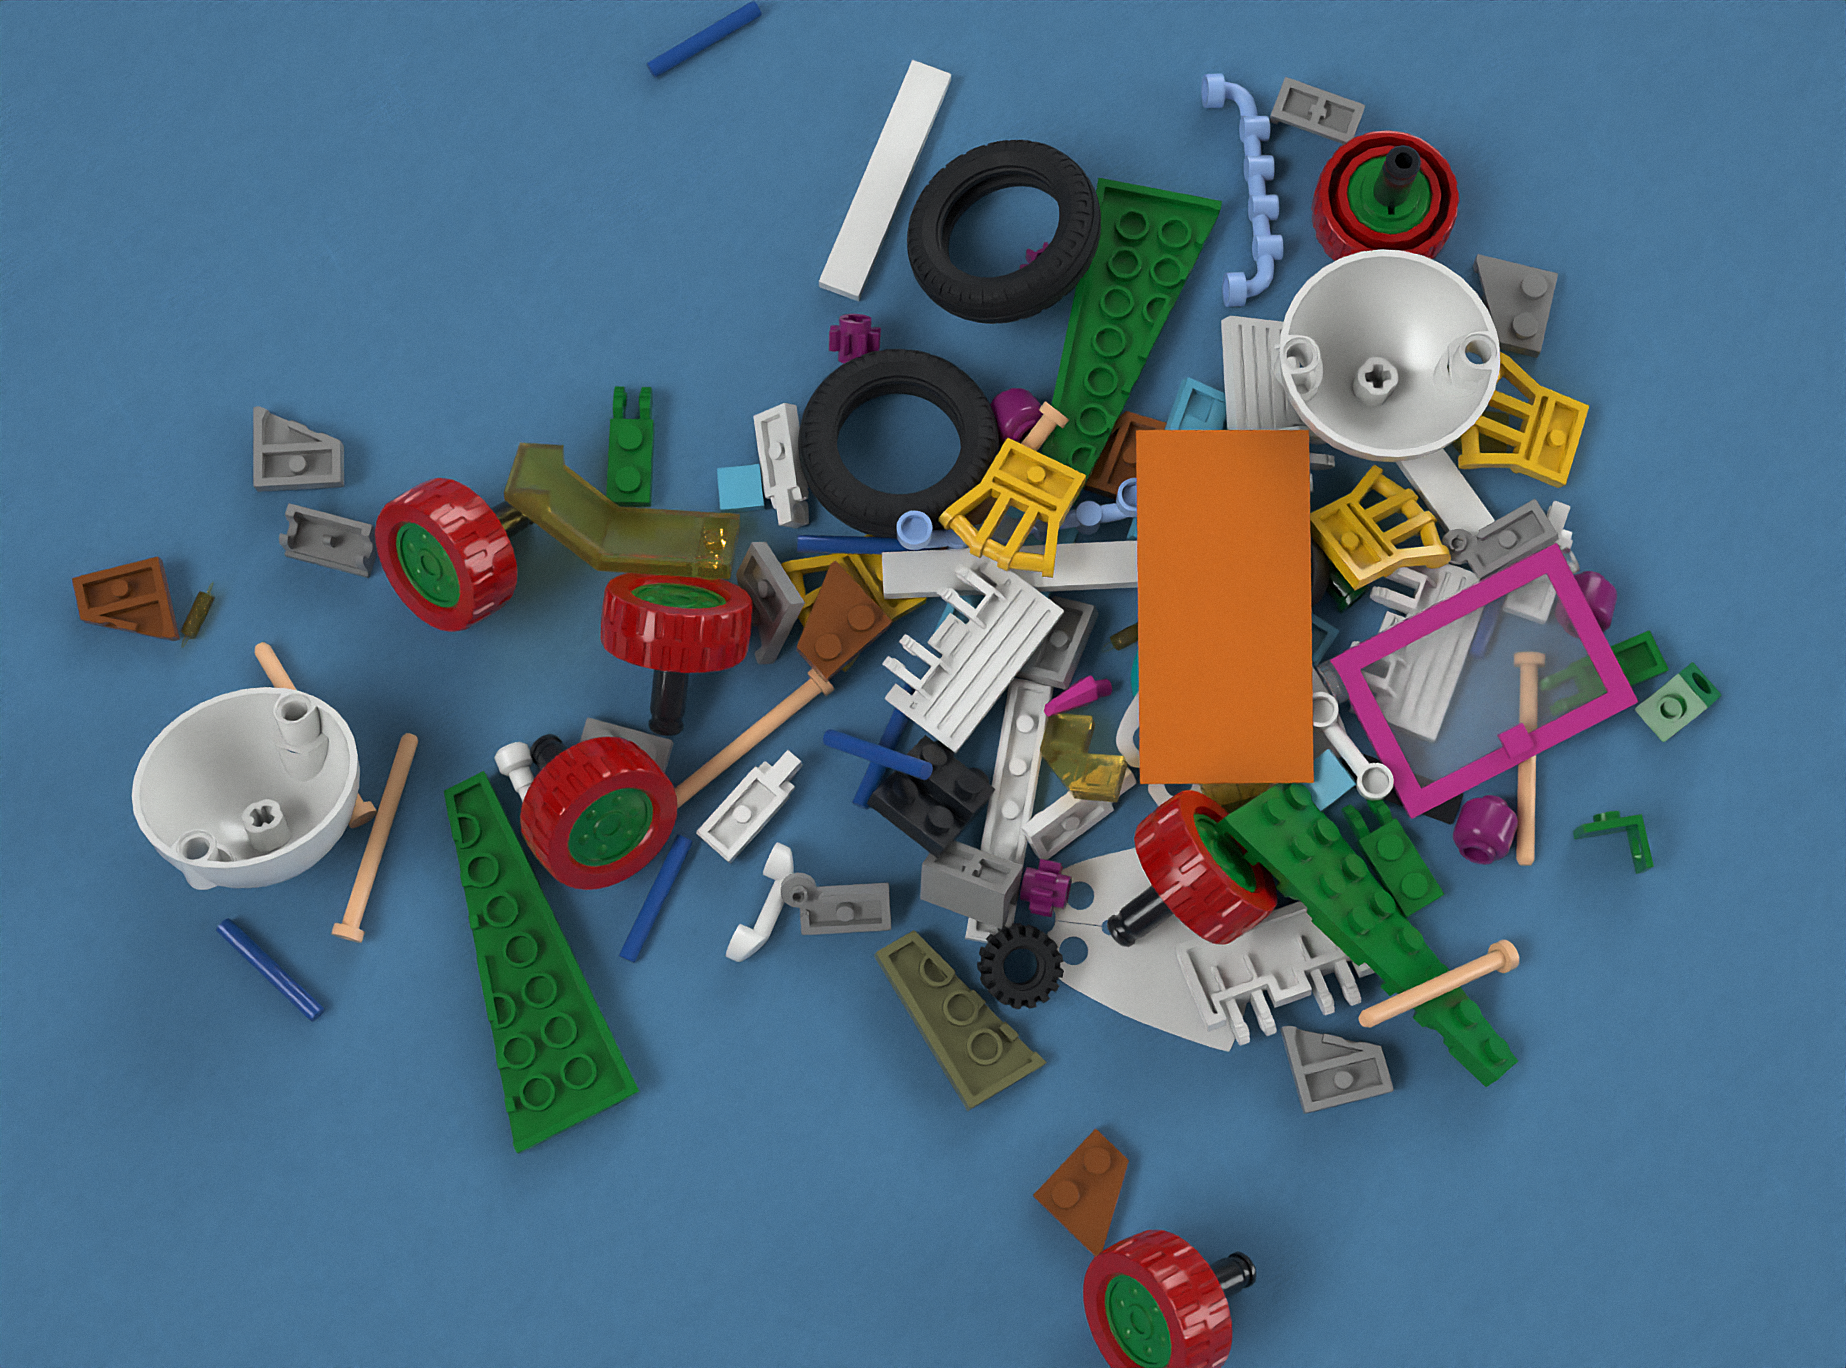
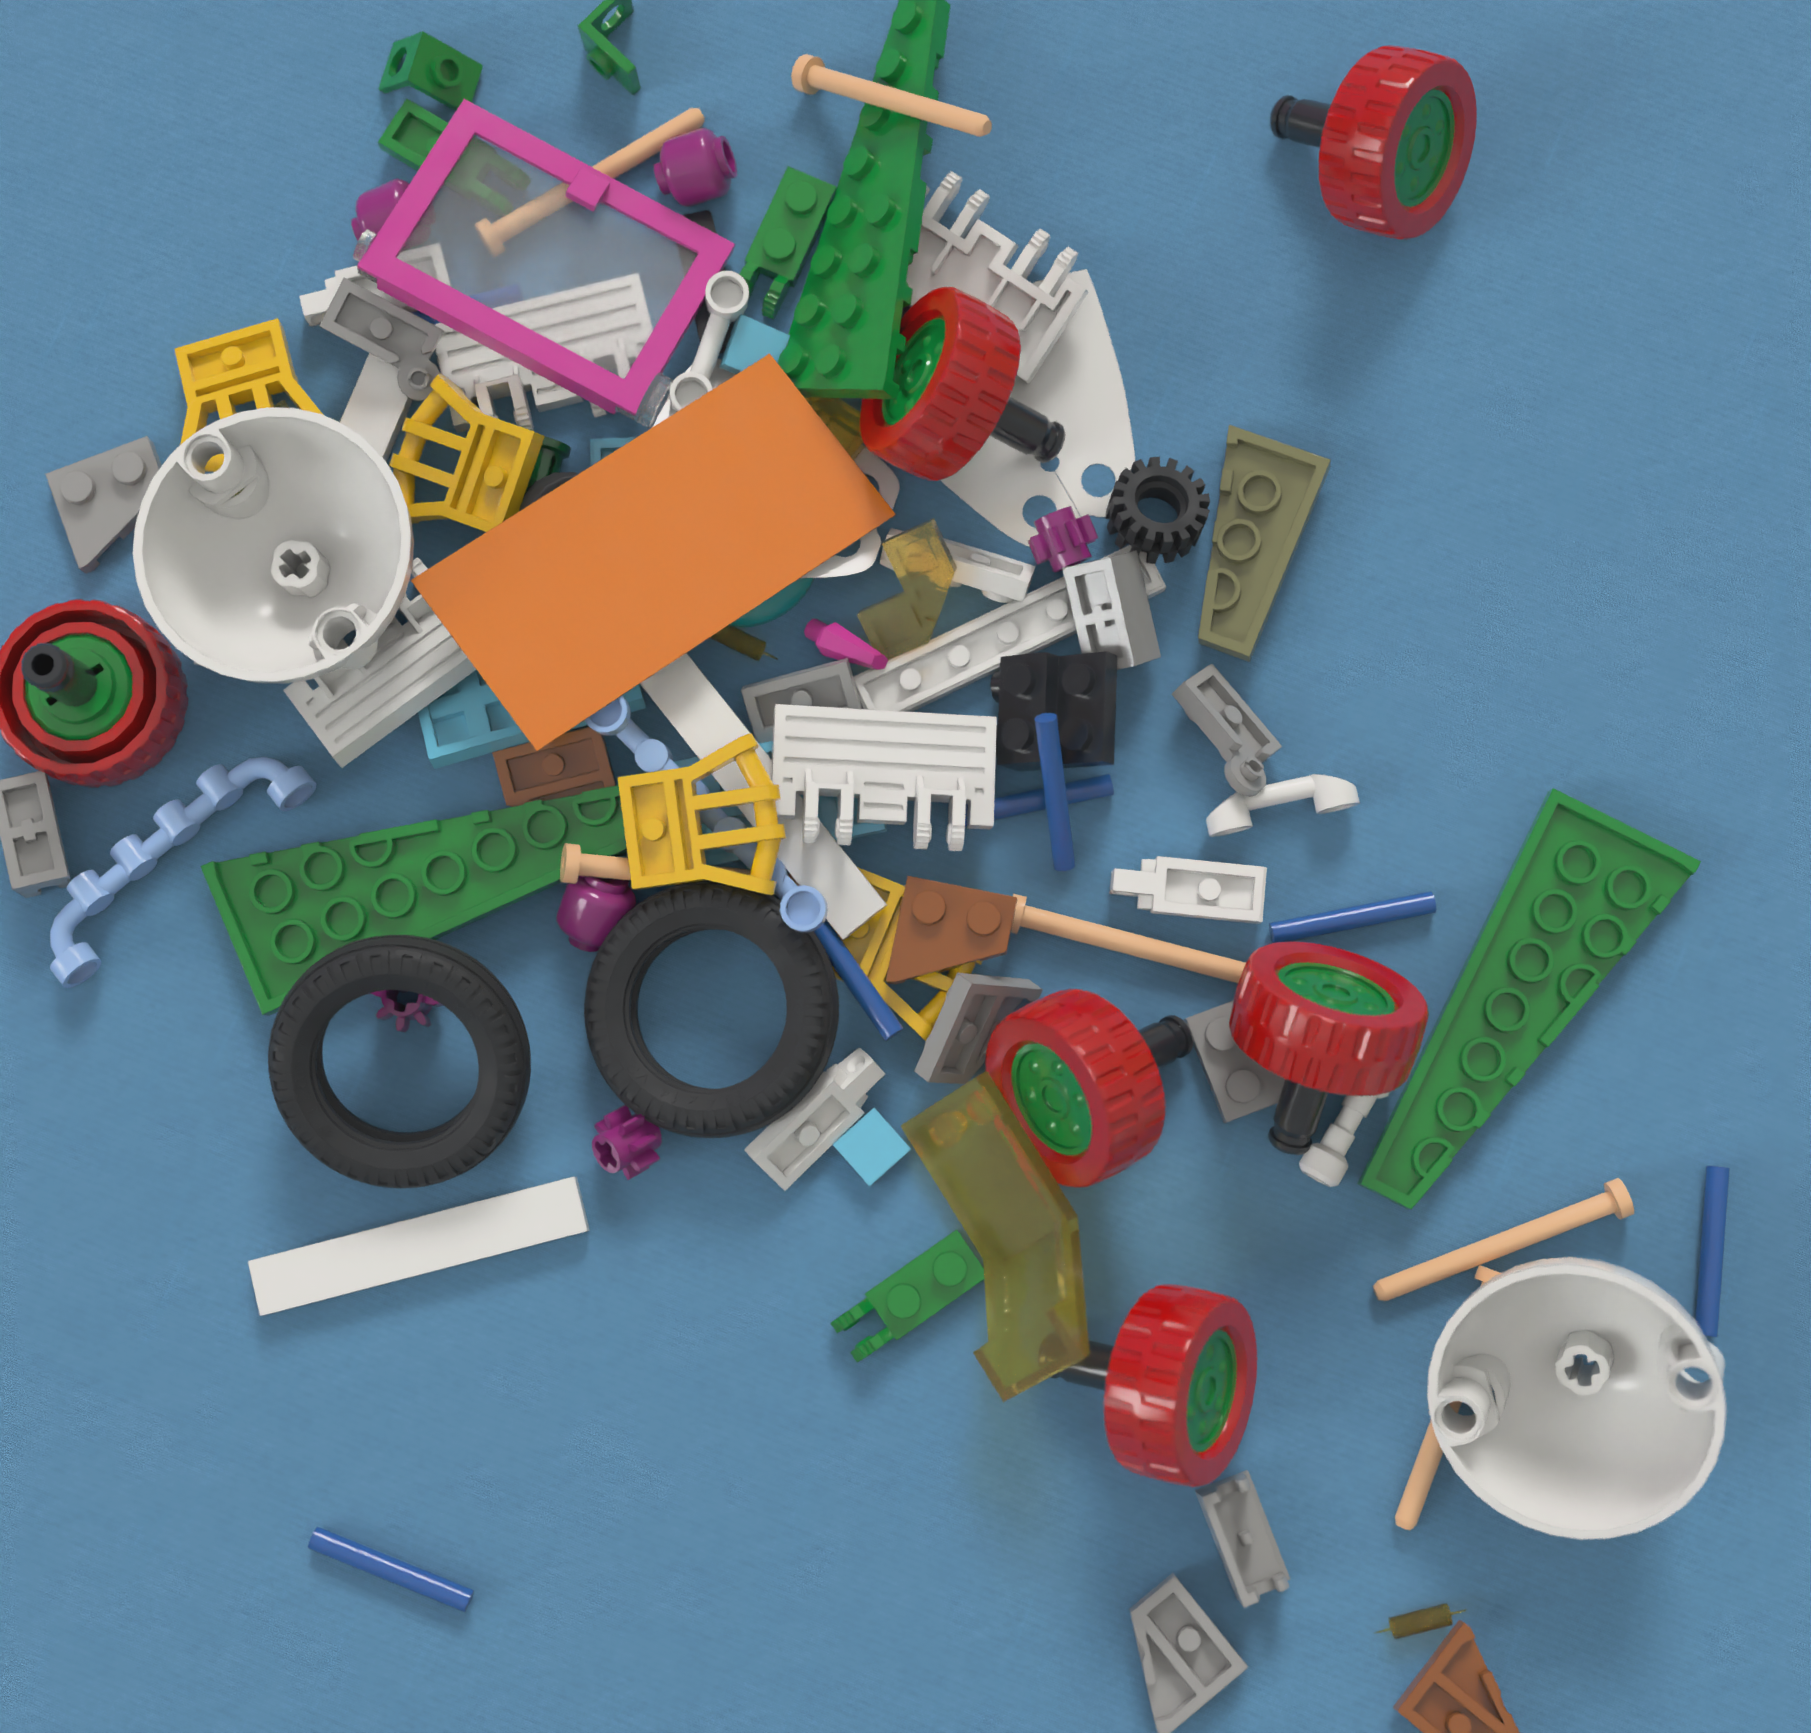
camera: 125 degrees left, 5 degrees up
(1086, 1190) = (1318, 308): dark orange wing -> none
(1333, 1069) = (1035, 156): light grey wing -> none

